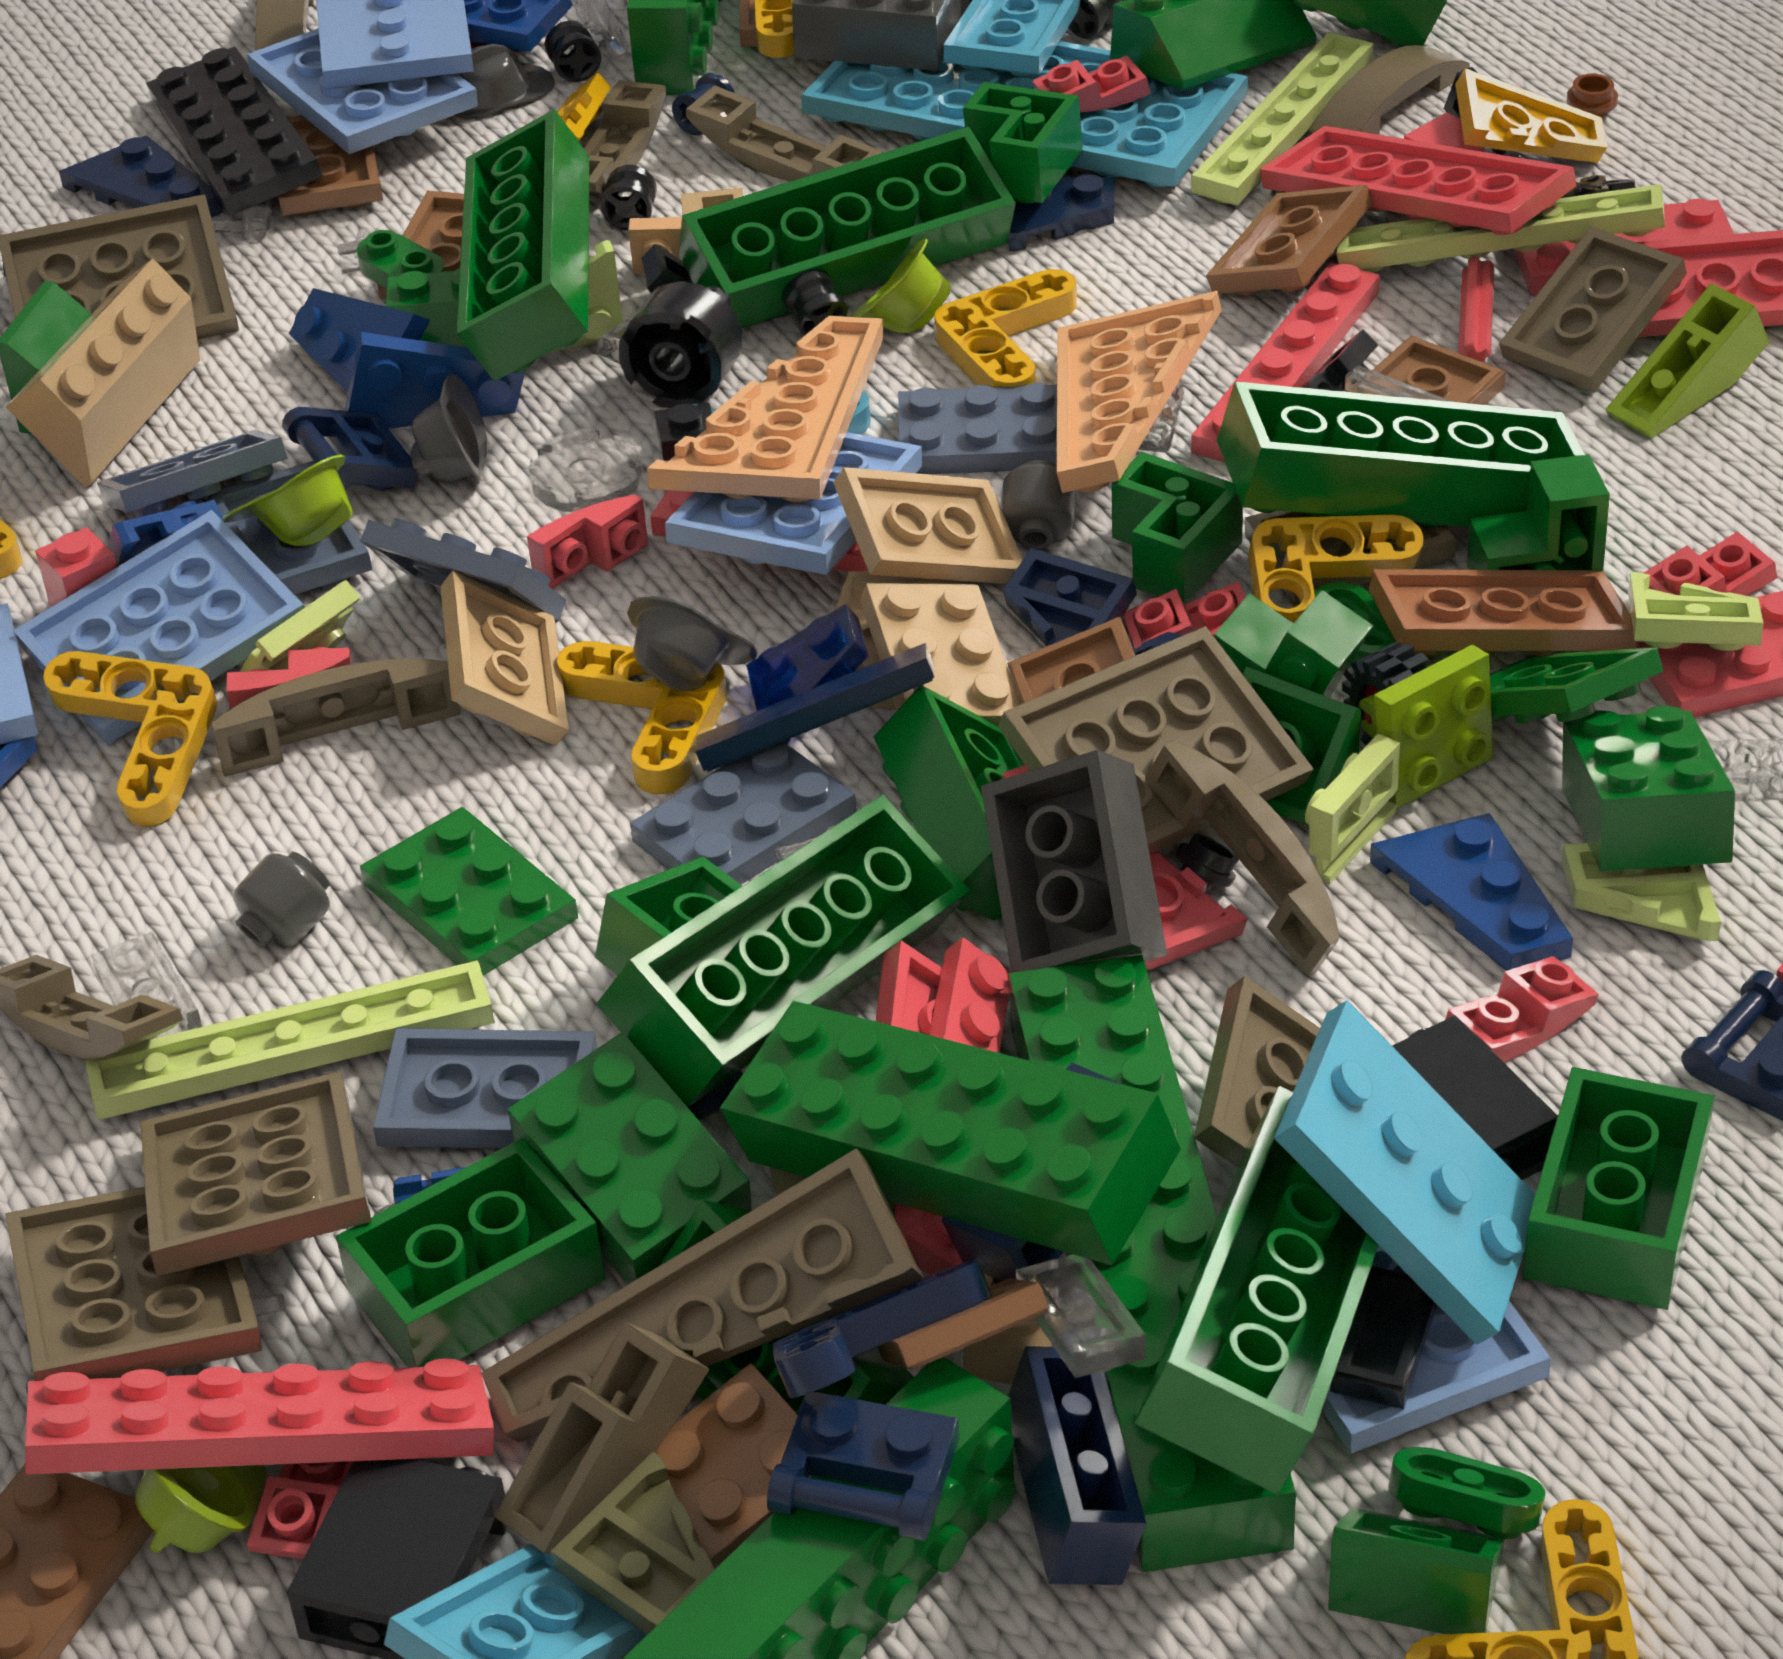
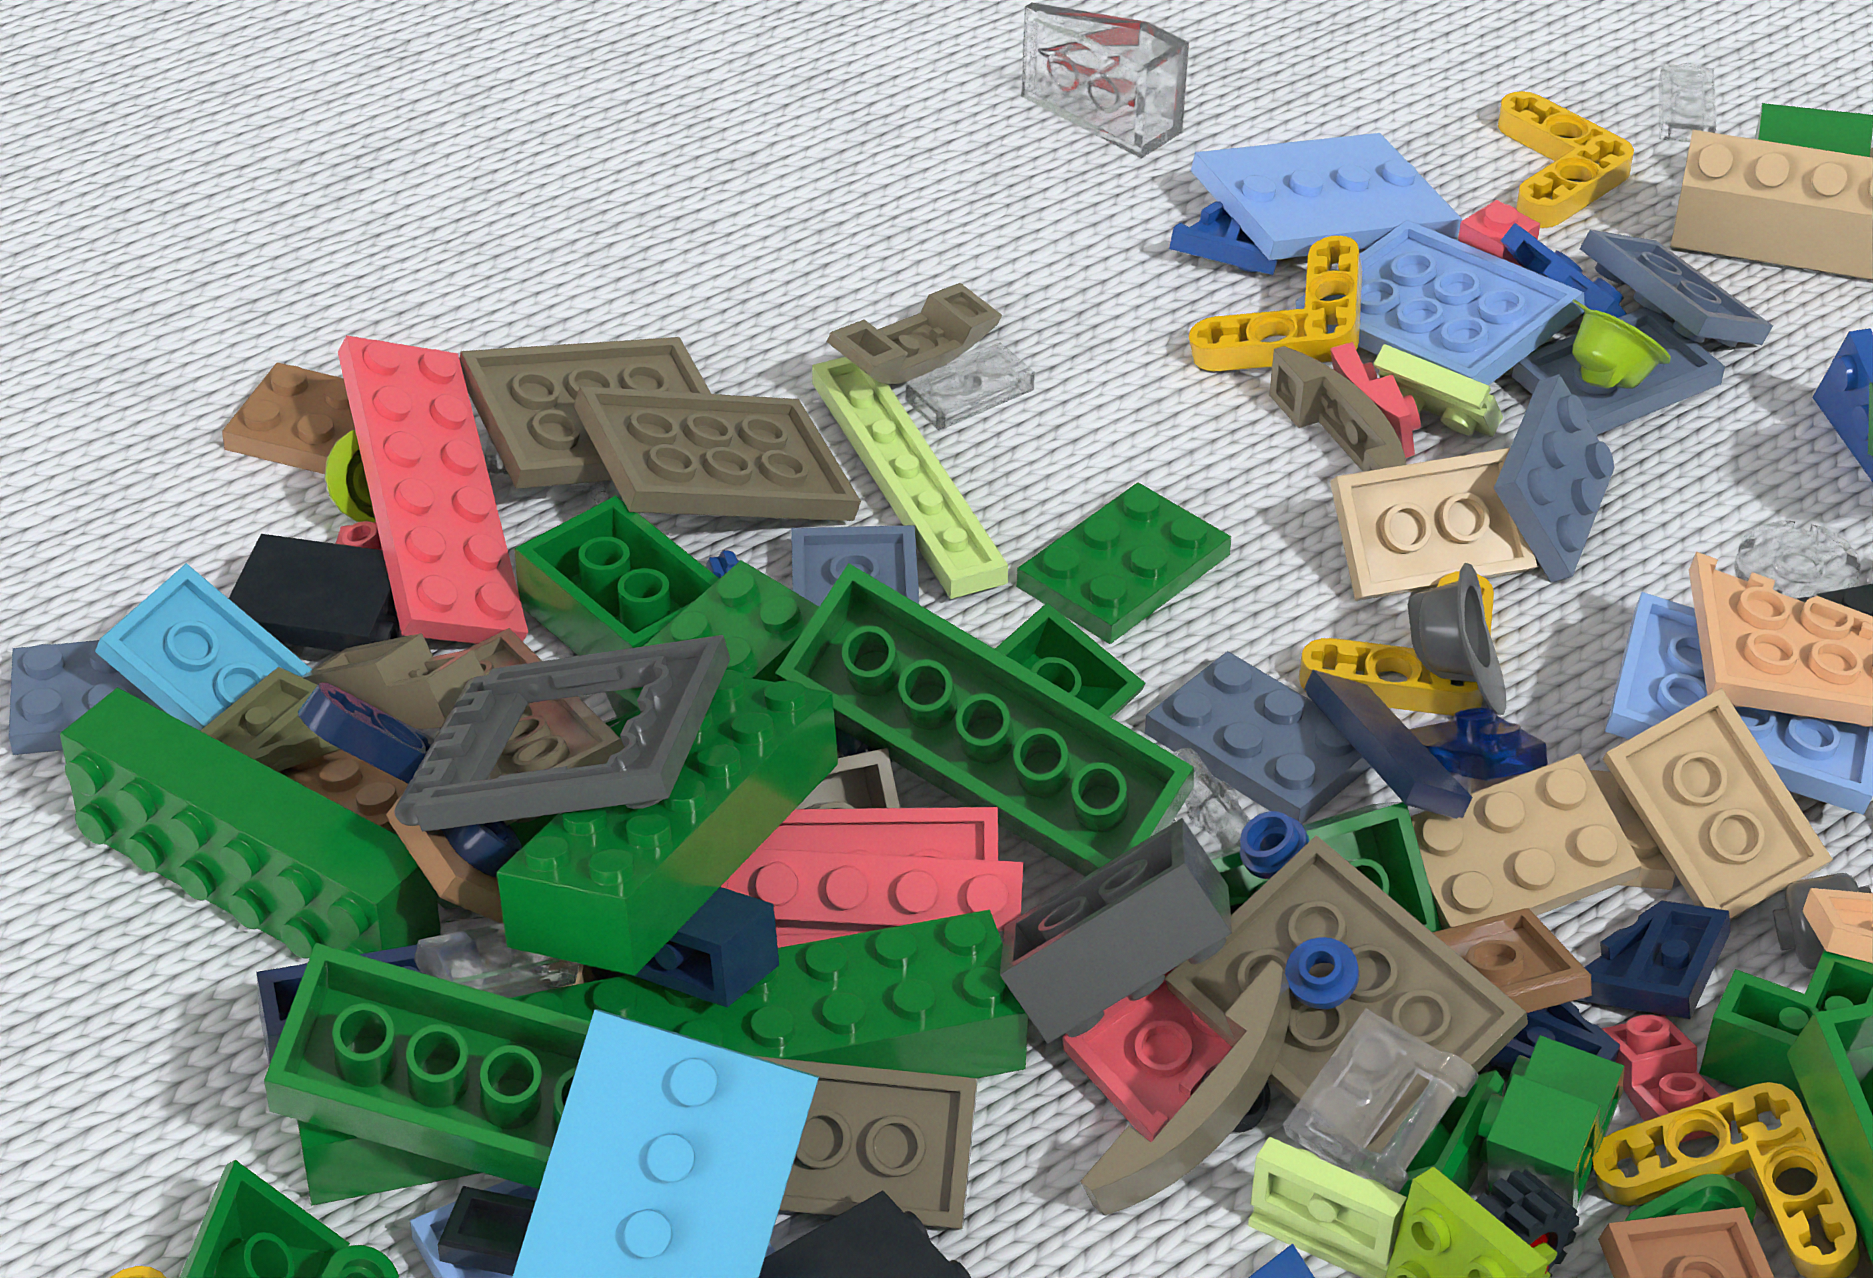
camera: 80 degrees right, 0 degrees up
(281, 899) = (1077, 436): dark grey head -> none
(368, 445) = (1758, 403): dark blue plate -> none
(450, 435) = (1800, 452): dark grey piece -> none
(594, 535) = (1646, 560): coral slope -> none
(862, 1083) = (676, 694): none -> dark grey hinge
(869, 1448) = (310, 812): dark blue plate -> none
(984, 741) = (1270, 843): none -> blue plate
(1138, 745) = (1328, 990): none -> blue plate
(1260, 751) = (1362, 1088): none -> clear plate

